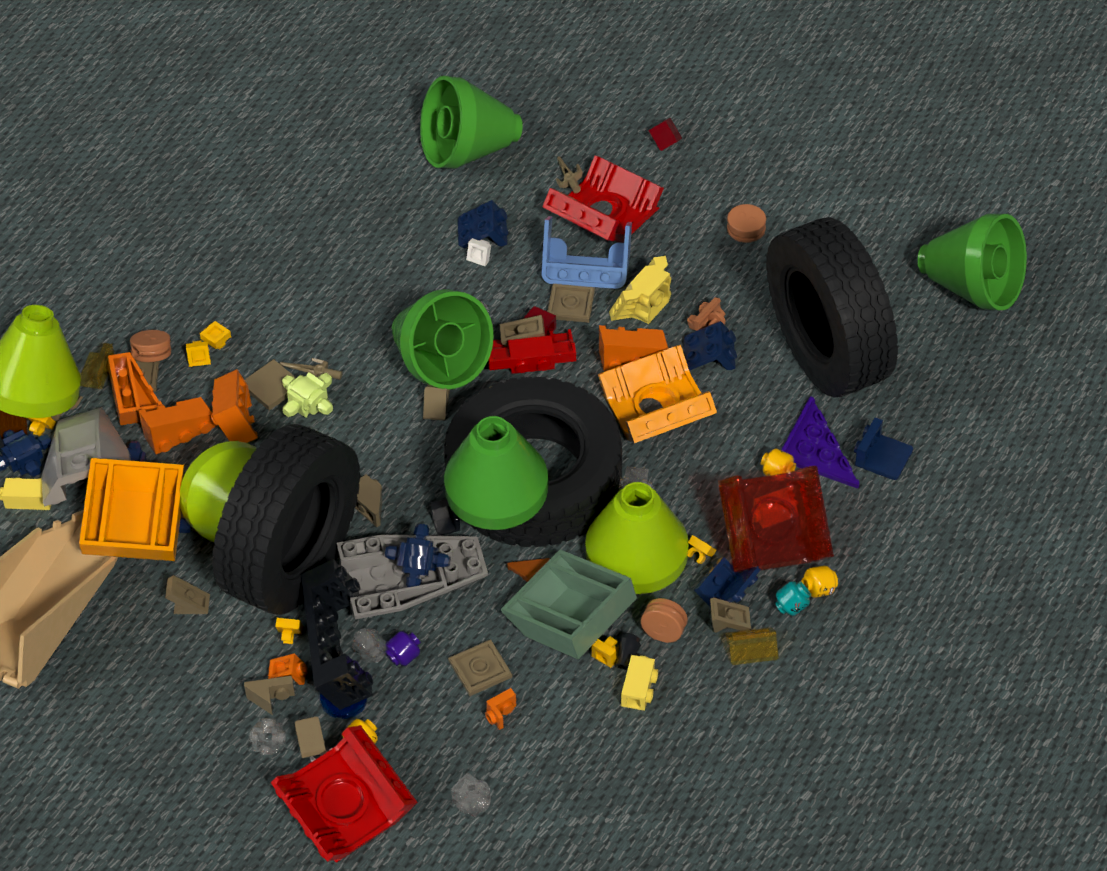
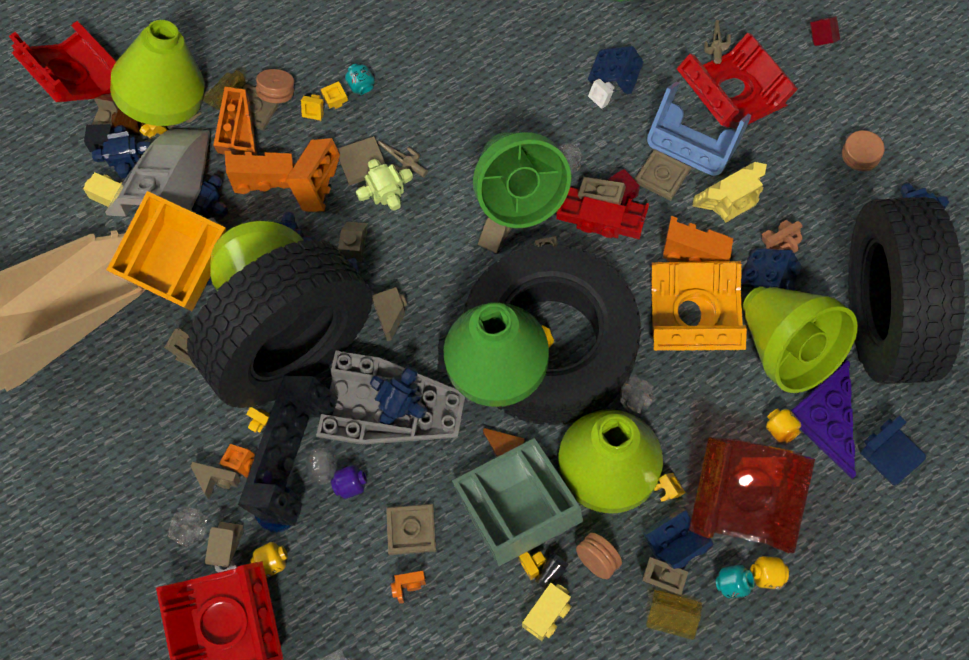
camera: 25 degrees right, 15 degrees up
(233, 313) = (359, 79): none -> teal head
(759, 382) = (799, 335): none -> lime cone

